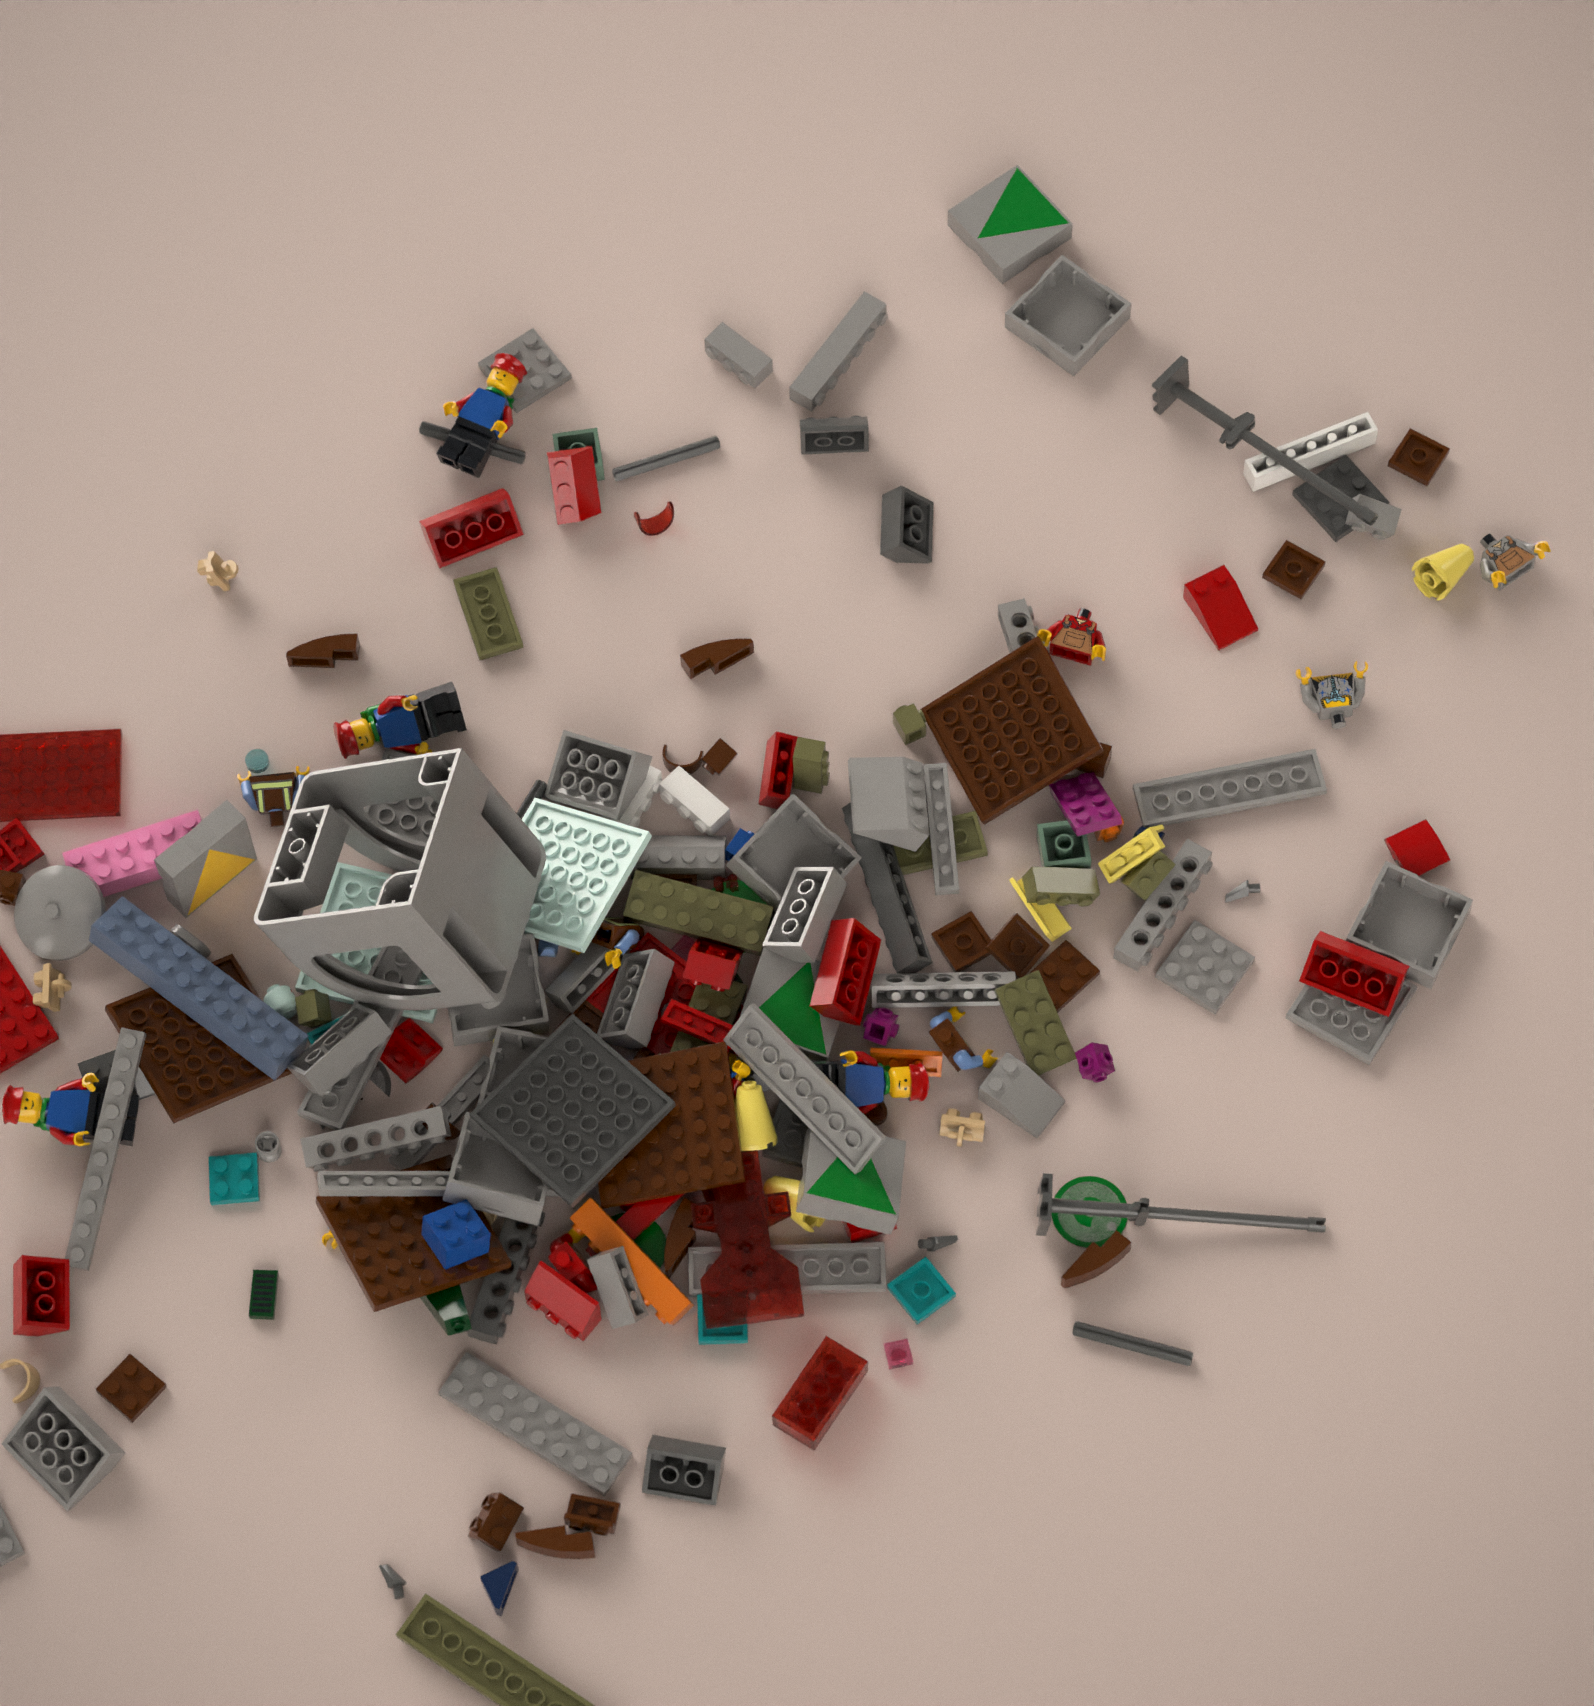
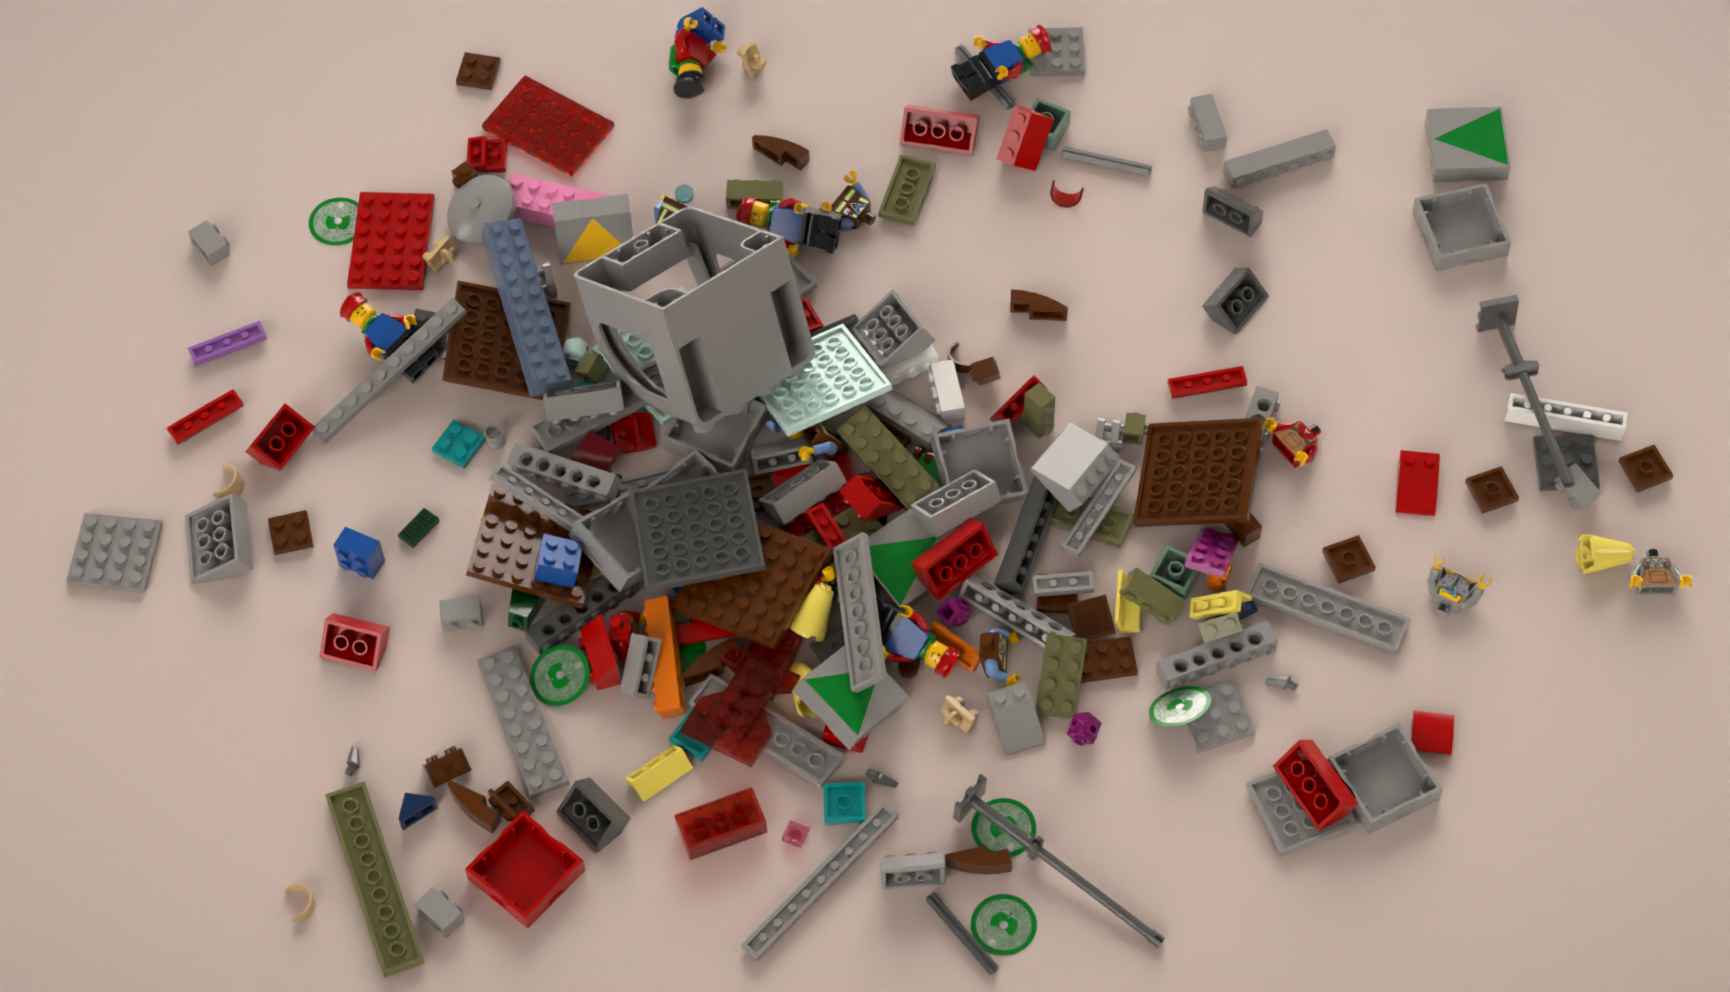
camera: 35 degrees right, 5 degrees down
(150, 602) = (693, 51): none -> piece
(228, 1362) = (359, 553): none -> blue brick
(295, 1457) = (354, 641): none -> red slope
(319, 722) = (761, 190): none -> olive brick
(383, 1355) = (460, 613): none -> light grey brick
(391, 1097) = (596, 452): none -> dark red slope
(445, 663) = (852, 203): none -> torso
(536, 1351) = (559, 675): none -> green piece
(609, 1672) = (440, 912): none -> light grey brick
(661, 1571) = (525, 869): none -> red tile
(714, 1382) = (659, 772): none -> light yellow panel
(893, 736) = (1116, 430): none -> light grey brick
(943, 630) = (1207, 382): none -> red plate
(958, 1385) = (819, 881): none -> light grey plate
(965, 929) = (1063, 584): none -> light grey plate
(1040, 1312) = (912, 870): none -> light grey slope
(1163, 1307) = (1003, 924): none -> green piece
(1169, 979) = (1180, 706): none -> piece
(1213, 726) = (1348, 559): none -> reddish brown plate

